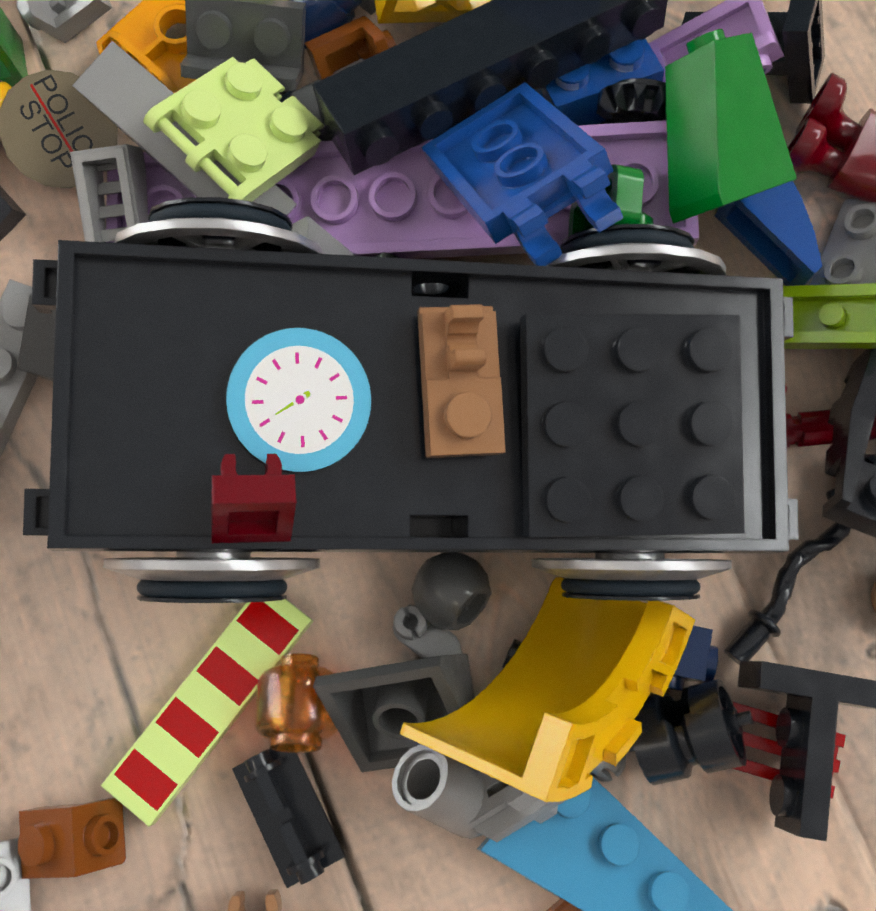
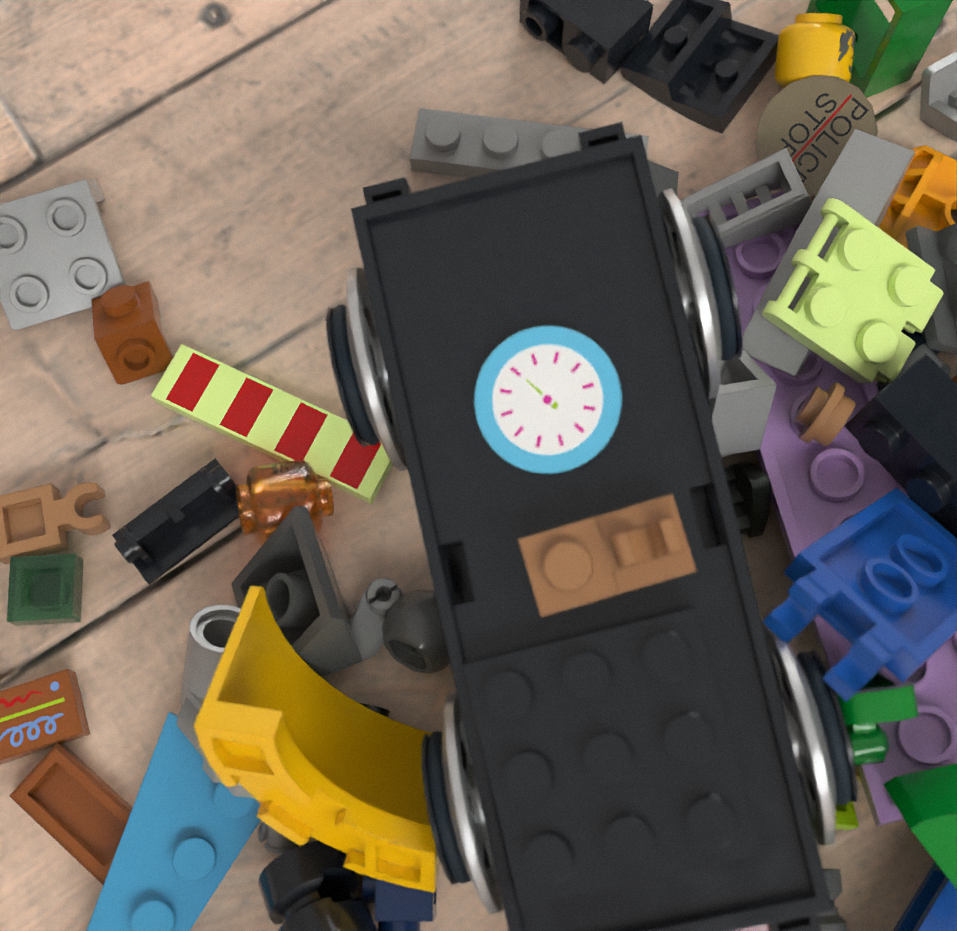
camera: 80 degrees right, 5 degrees down
(252, 505) = (425, 374): dark red tile -> none
(340, 187) = (824, 414): none -> medium nougat plate

